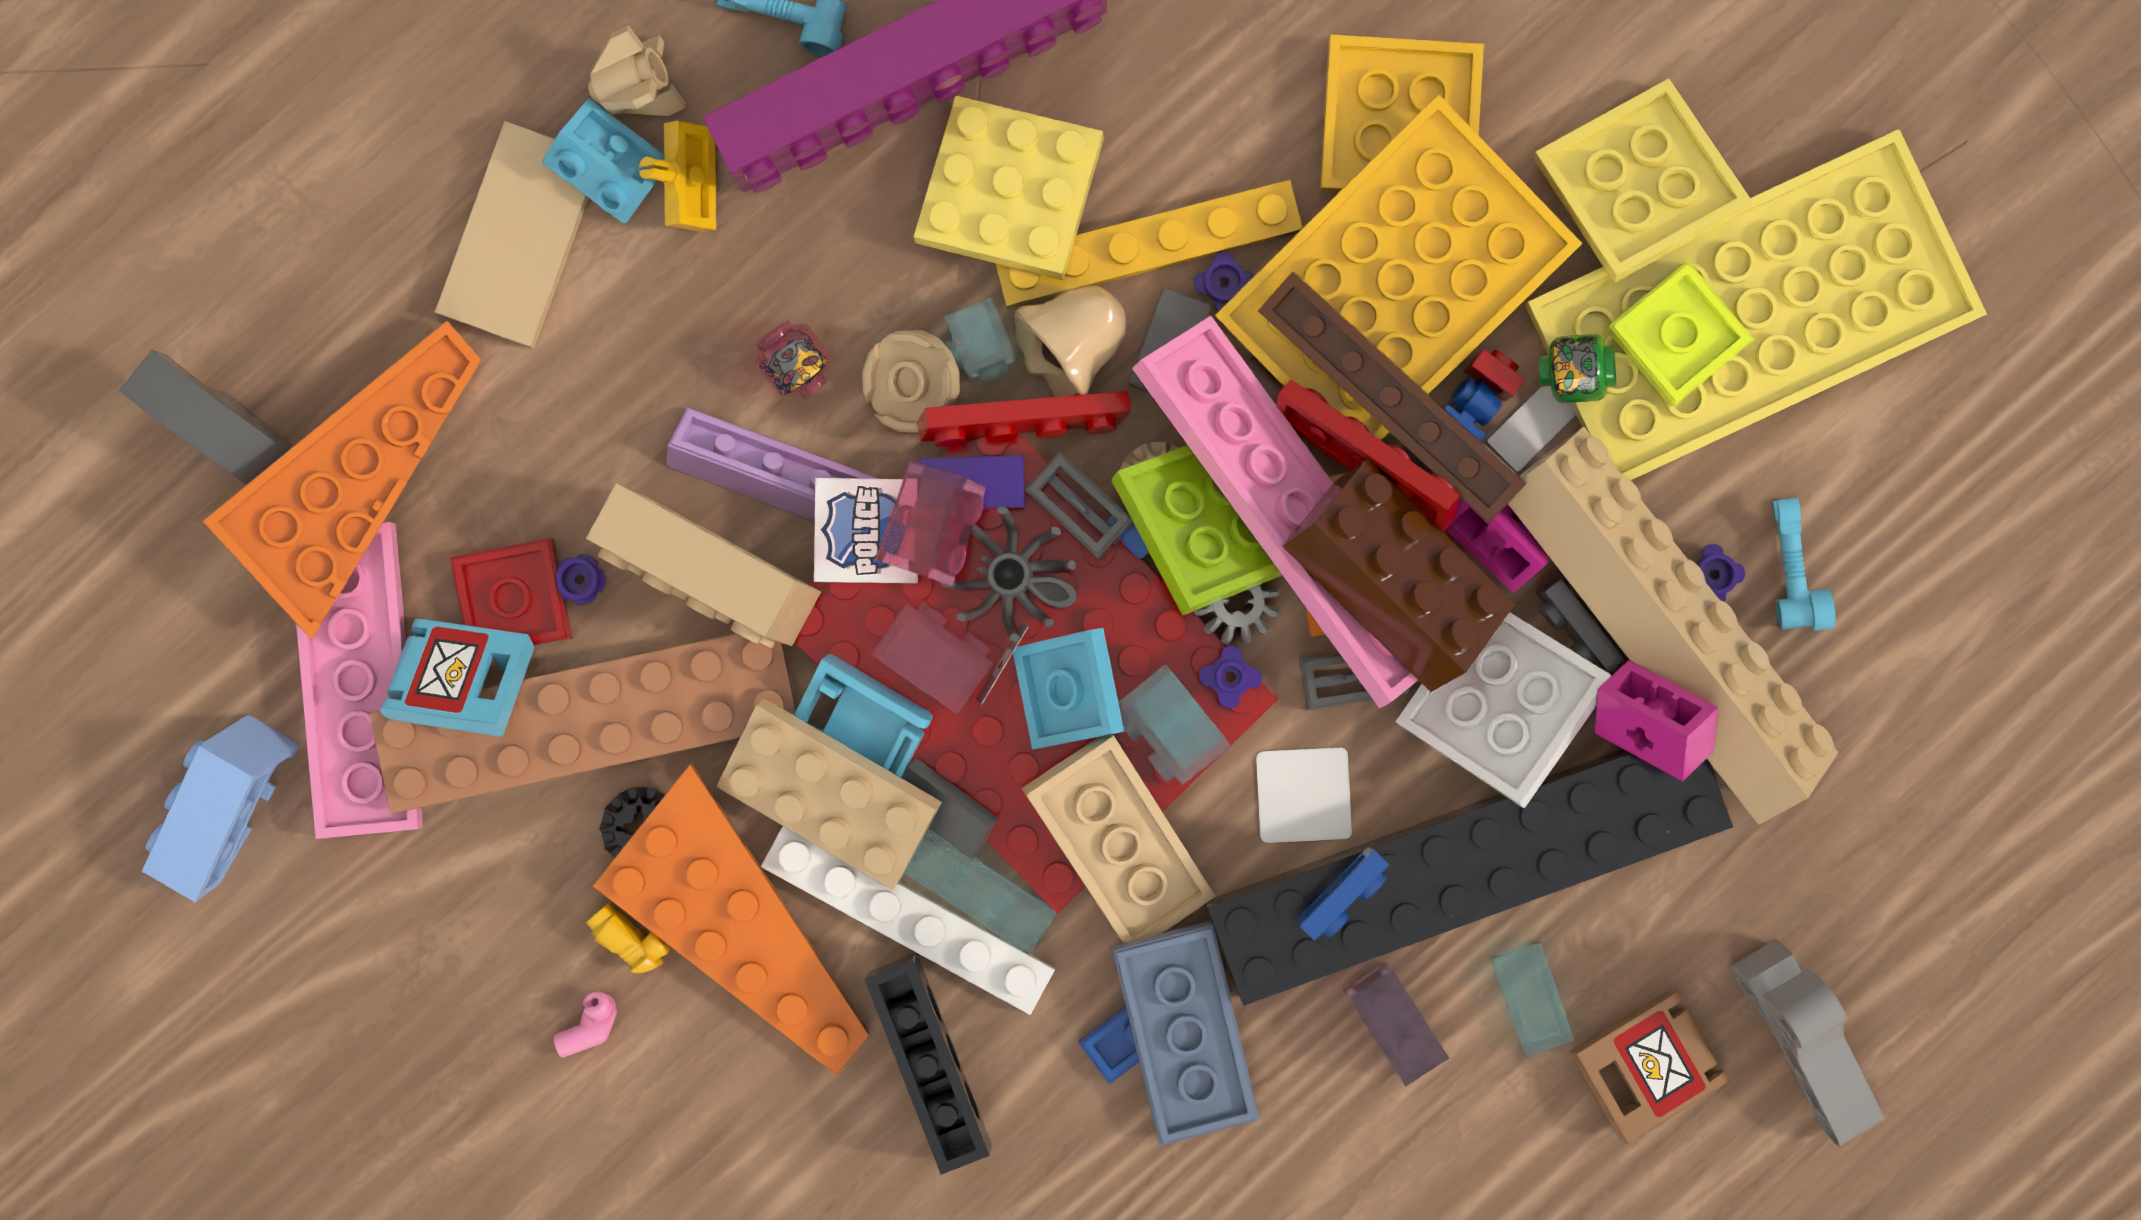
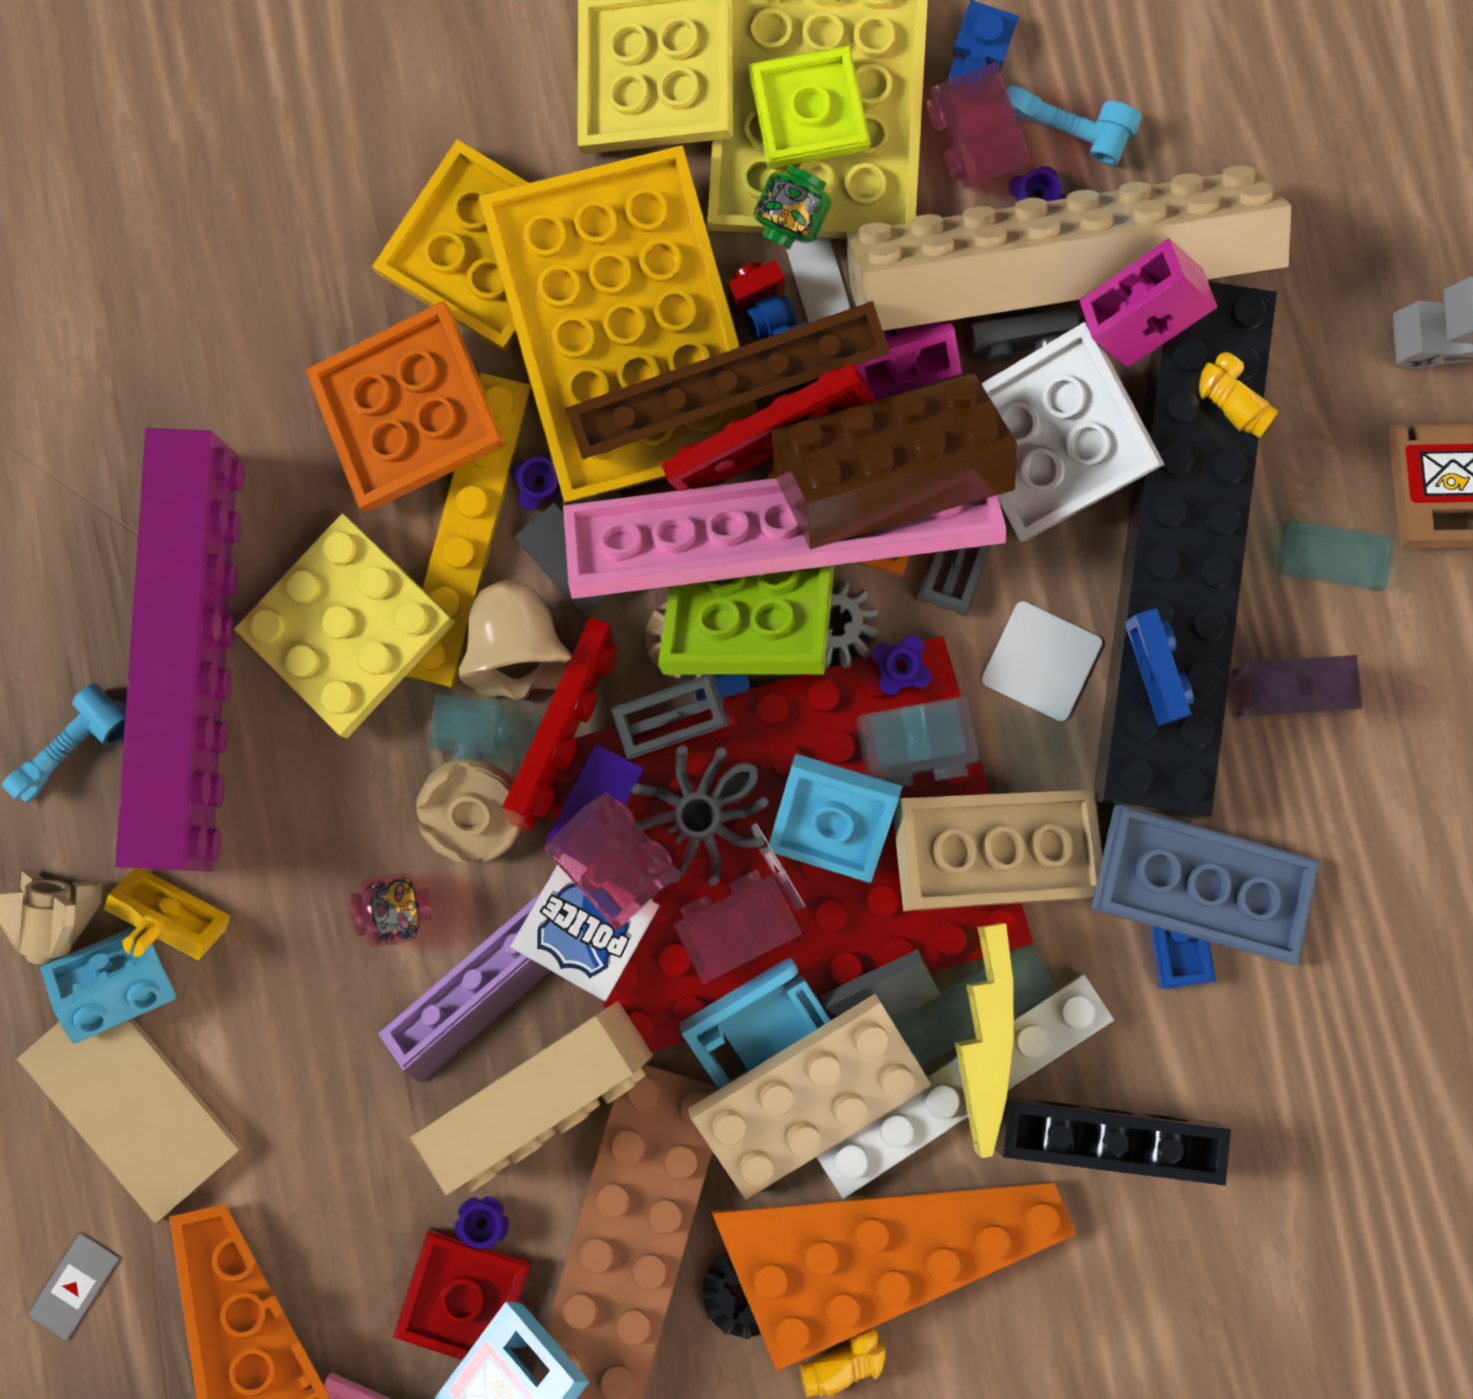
camera: 70 degrees left, 5 degrees down
(348, 273) = (73, 1286): none -> light grey sticker
(940, 923) = (987, 1058): none -> light yellow slope
(1223, 133) = (405, 407): none -> orange plate
(1610, 845) = (1241, 404): none -> yellow arm
(1743, 490) = (978, 126): none -> clear pink brick
(1827, 452) = (982, 38): none -> blue plate

